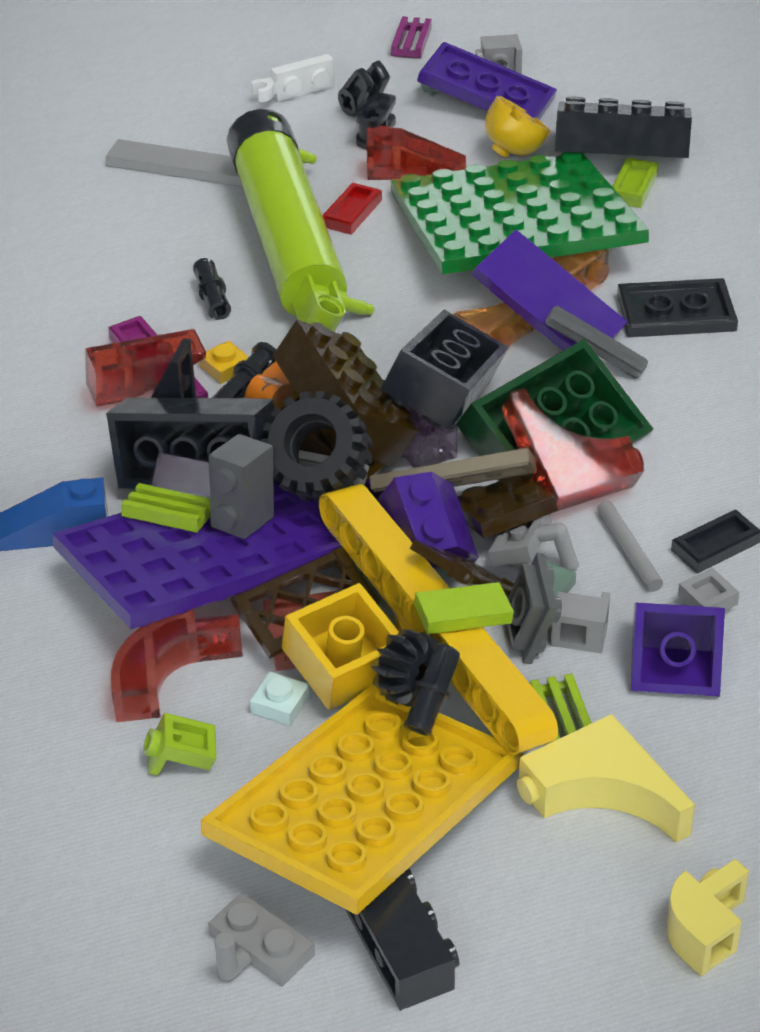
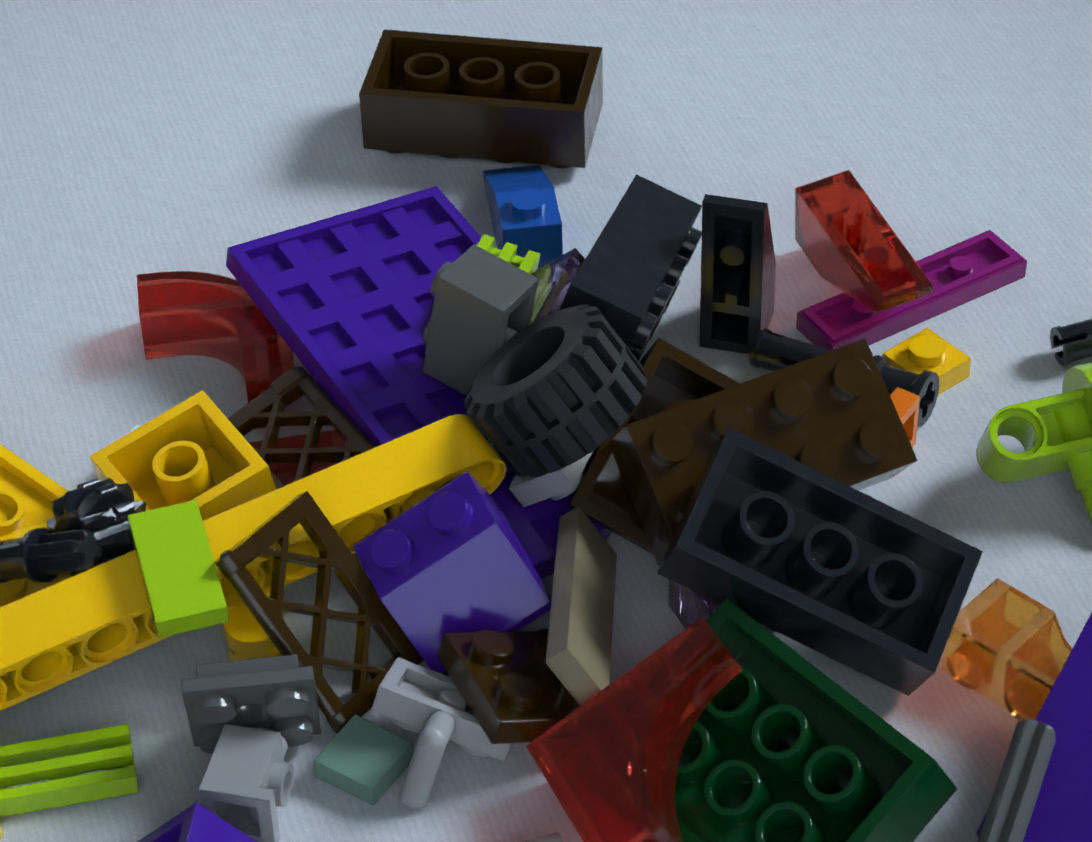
camera: 90 degrees right, 0 degrees up
(181, 742) = (63, 363): lime bracket -> none

